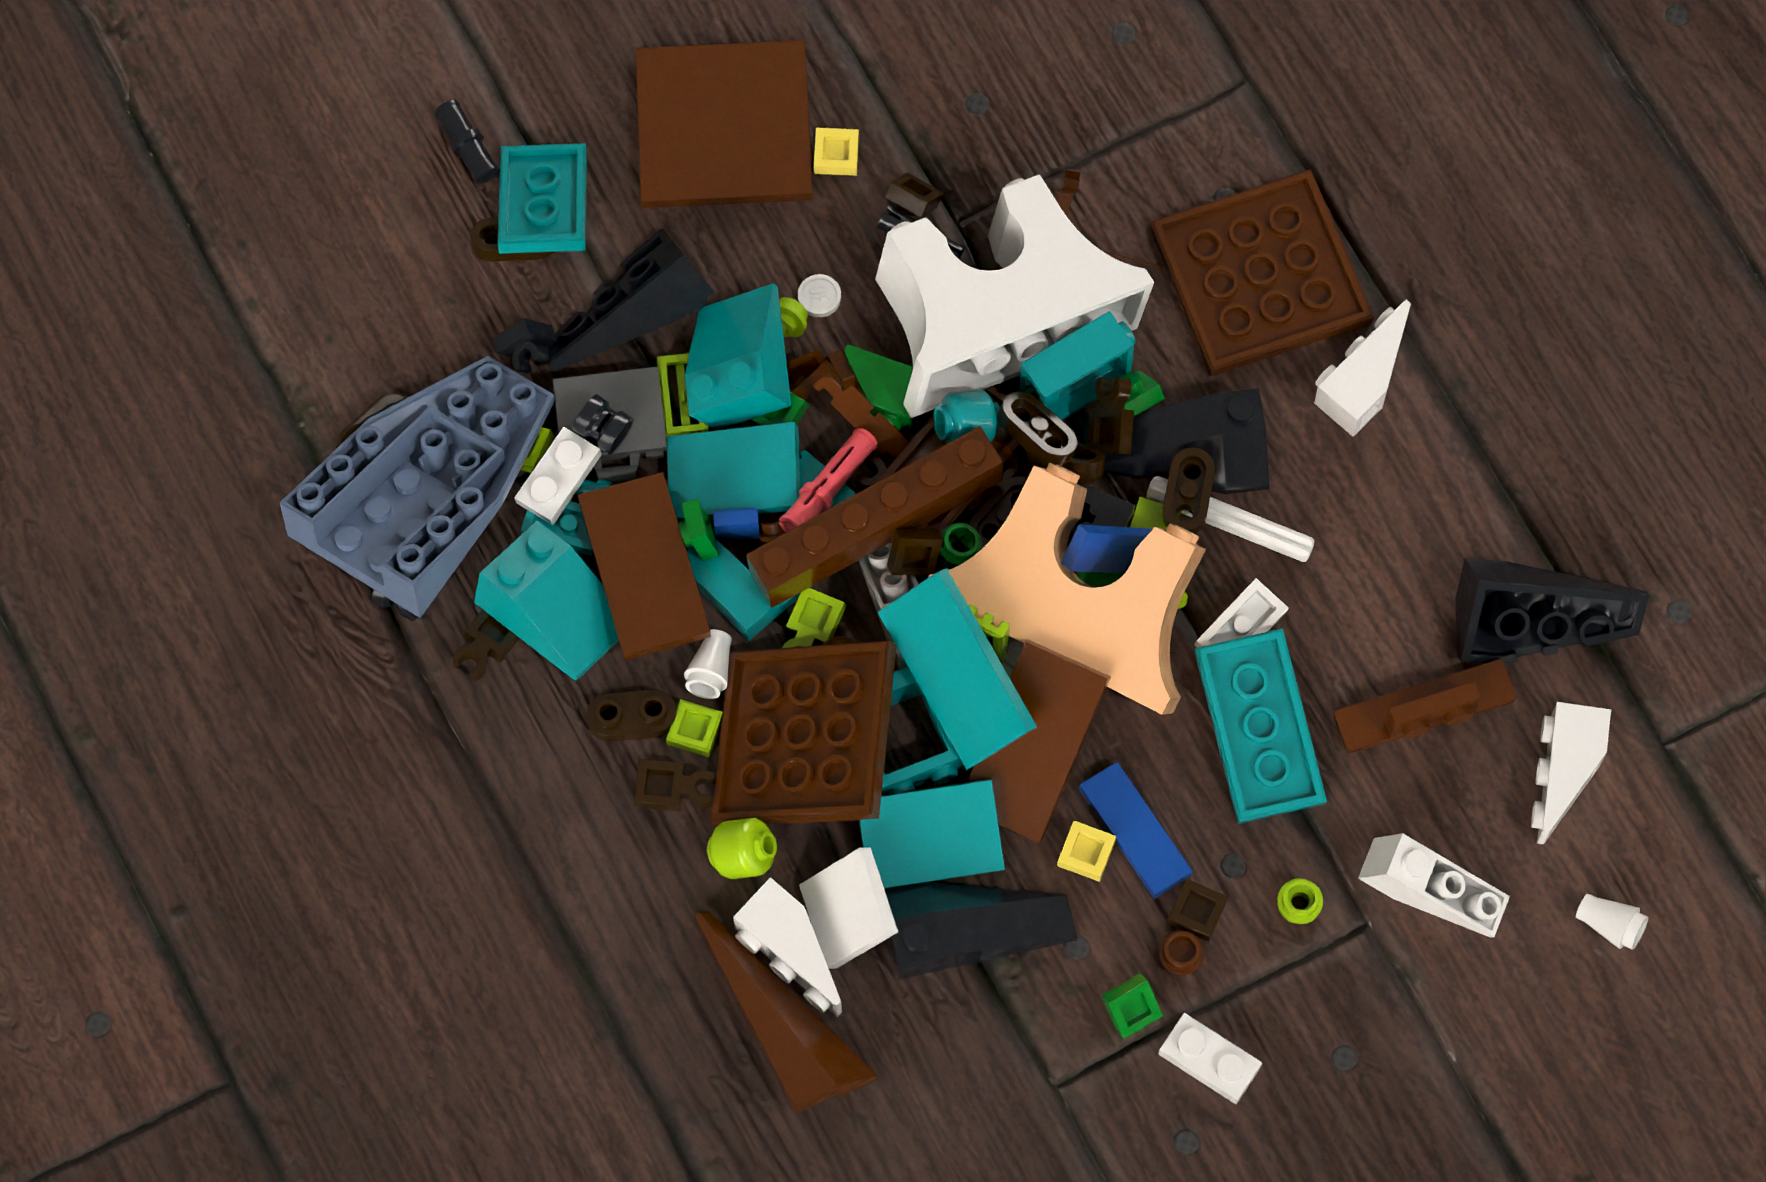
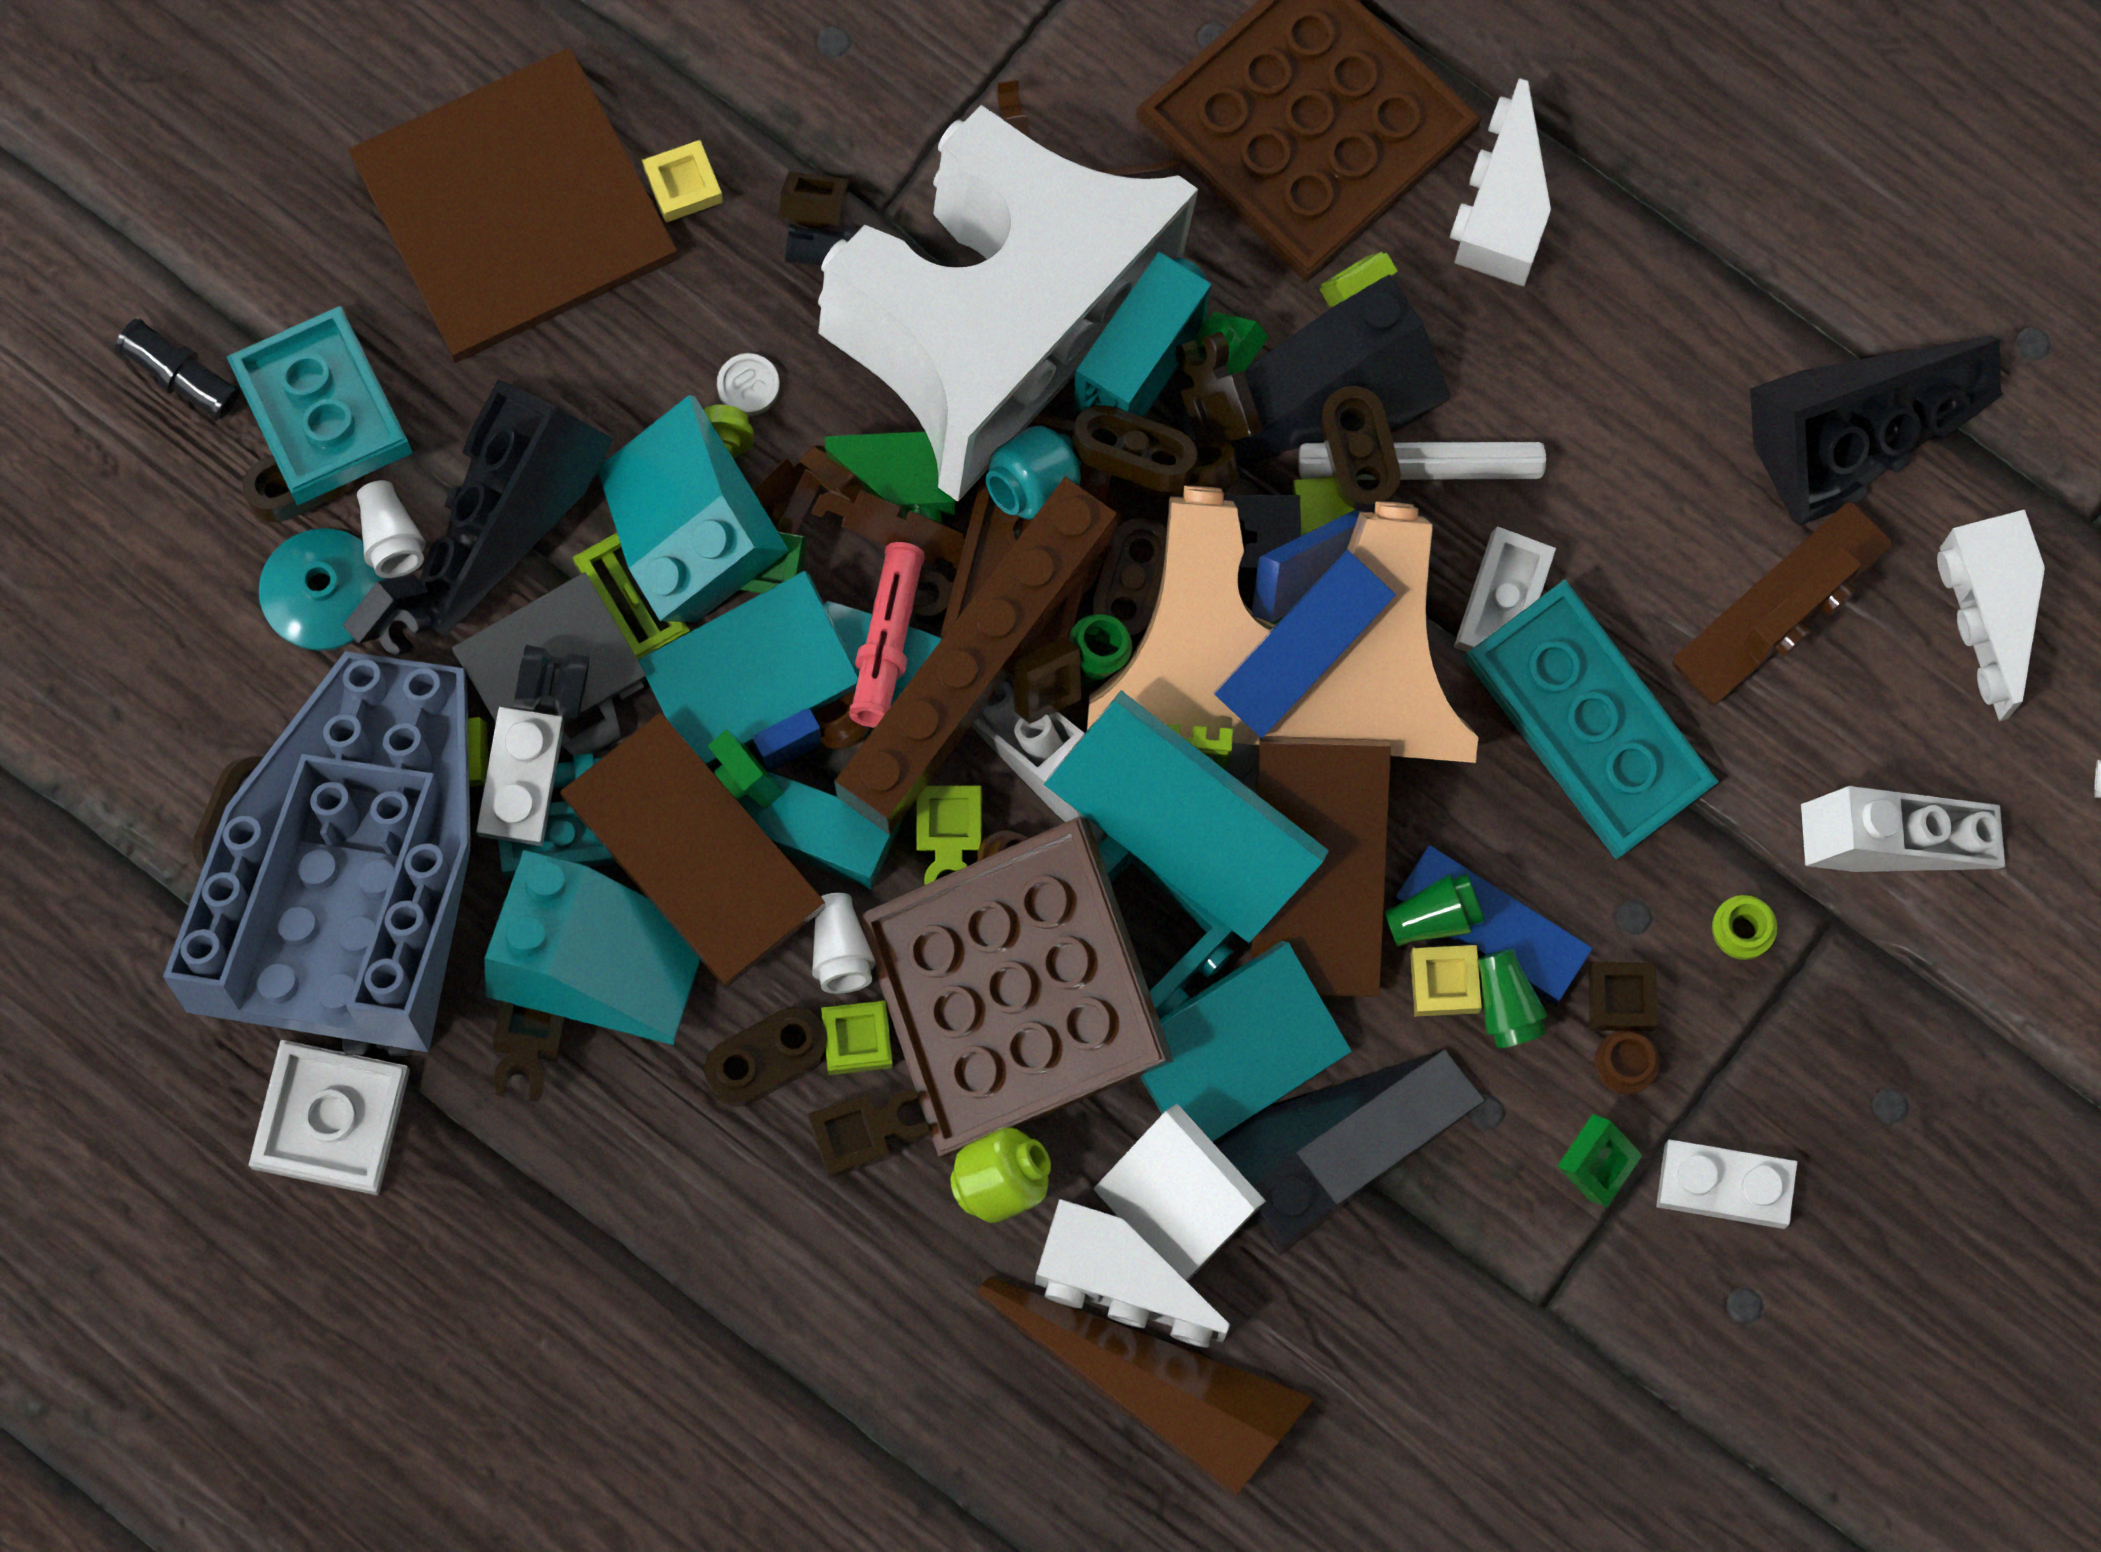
camera: 30 degrees left, 5 degrees up
(345, 637) = (329, 1117): none -> white tile
(478, 327) = (308, 616): none -> teal dish
(549, 296) = (389, 534): none -> white cone
(1080, 589) = (1304, 643): none -> blue tile
(1100, 803) = (1438, 911): none -> green cone
(1121, 879) = (1509, 1000): none -> green cone
(1242, 383) = (1357, 277): none -> lime tile

